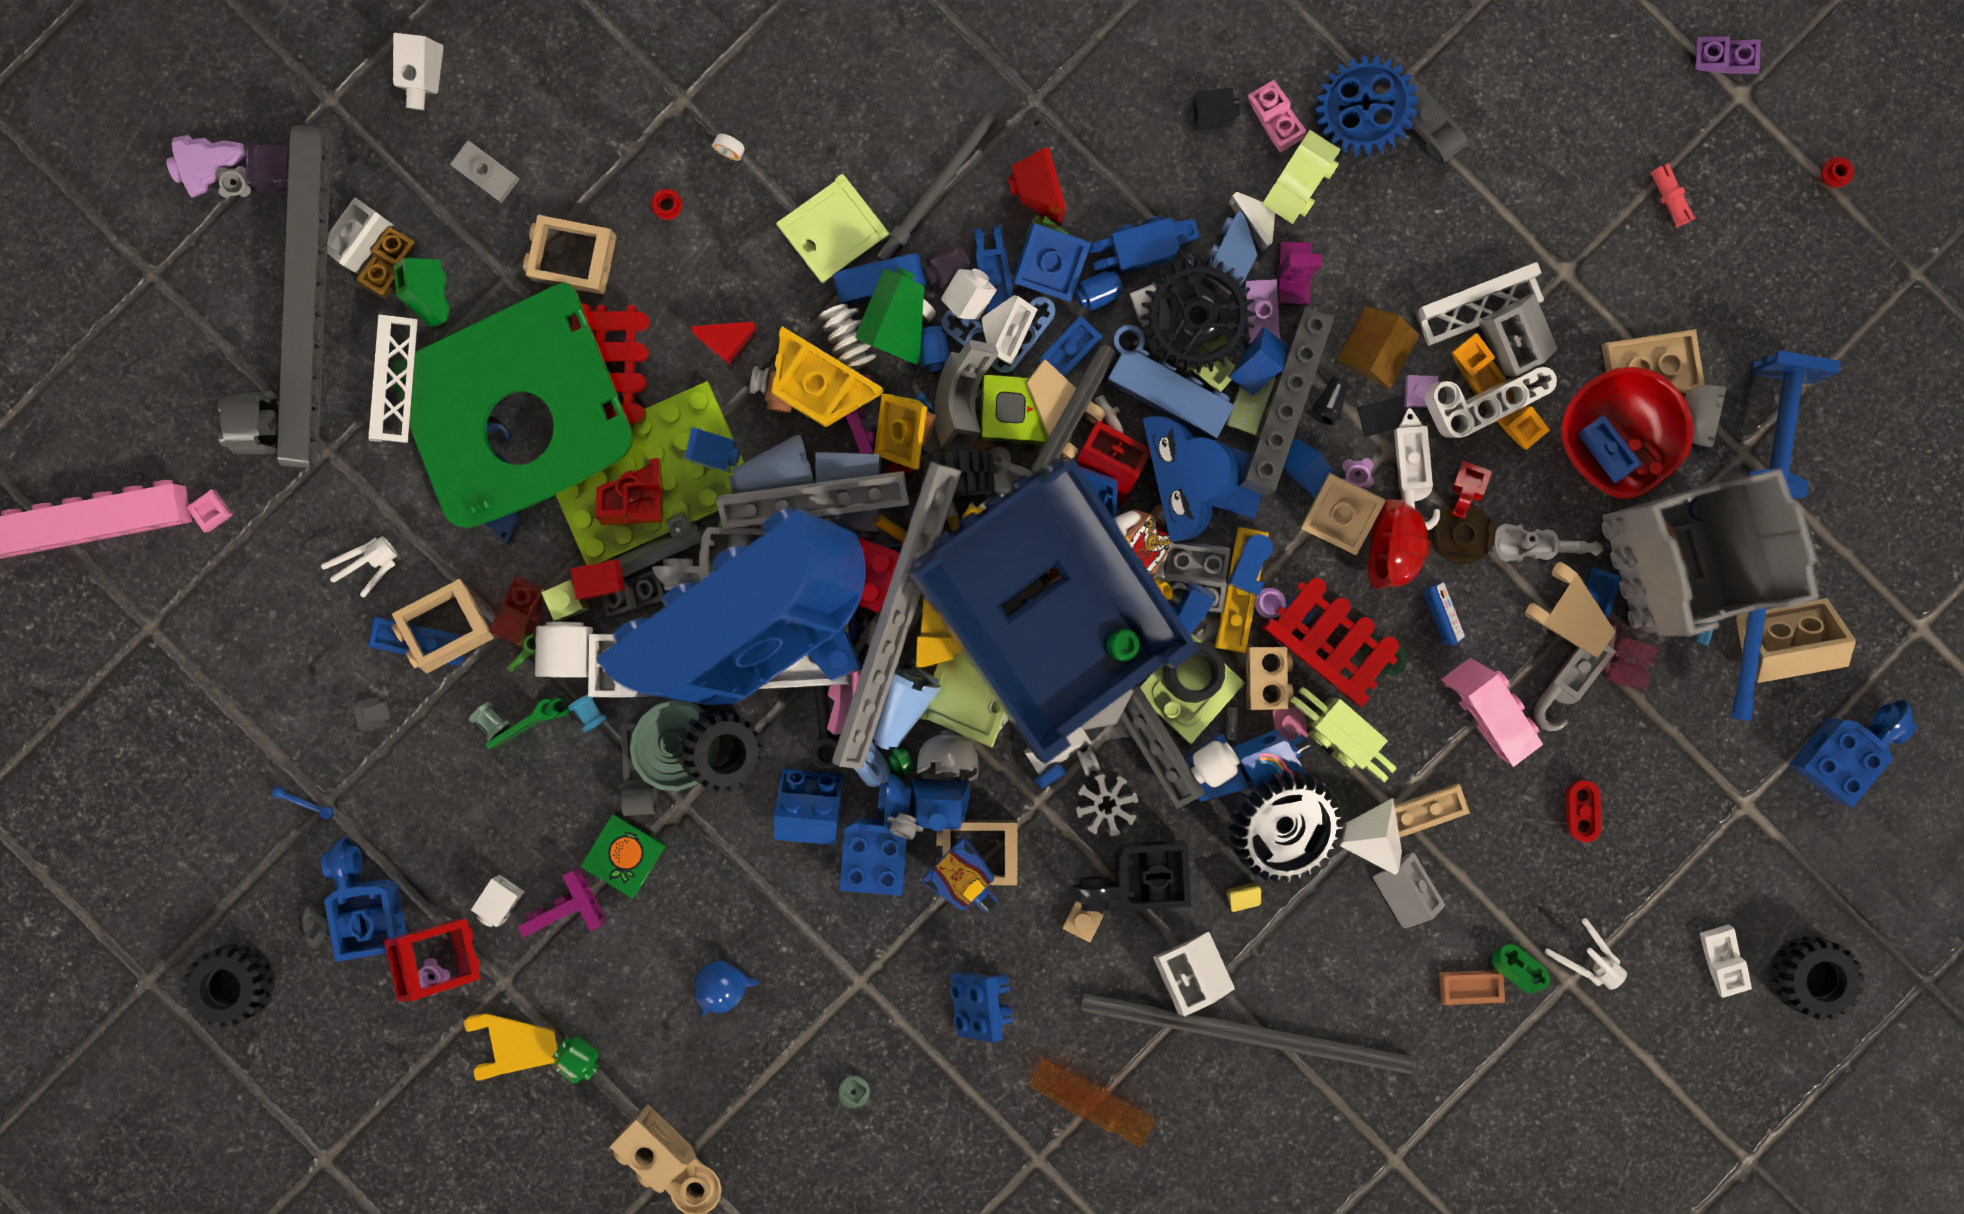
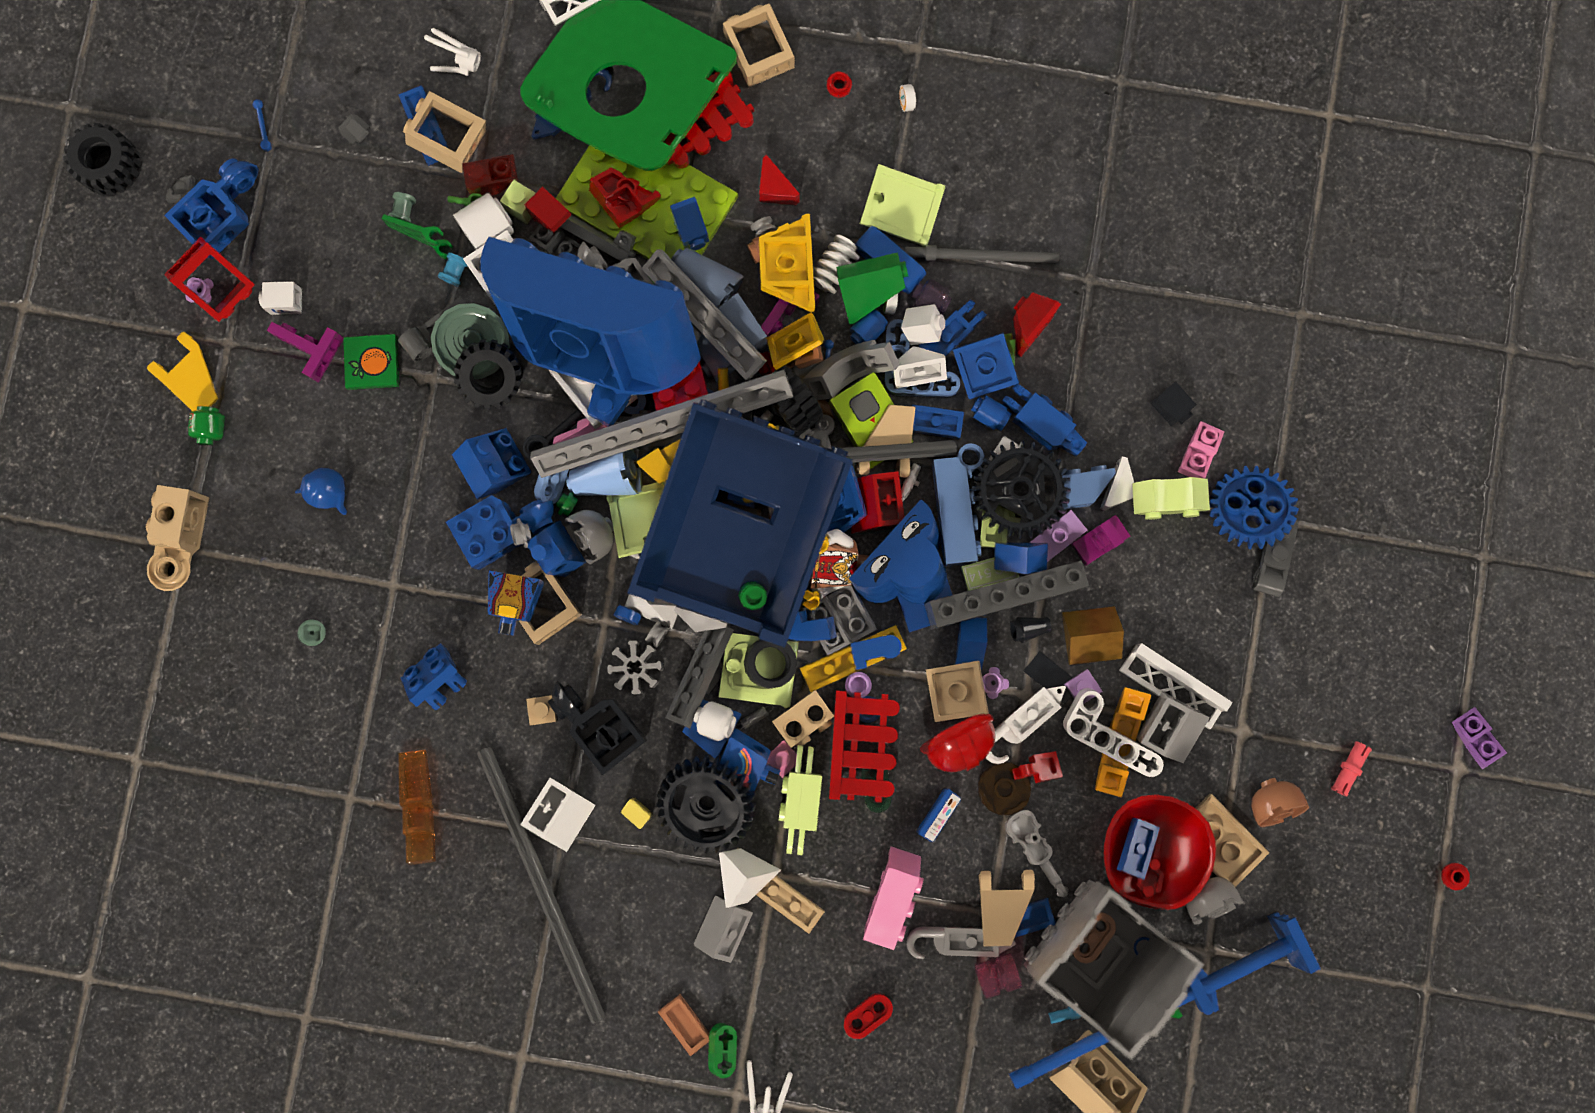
camera: 60 degrees right, 5 degrees down
(1656, 287) = (1277, 802): none -> nougat cylinder

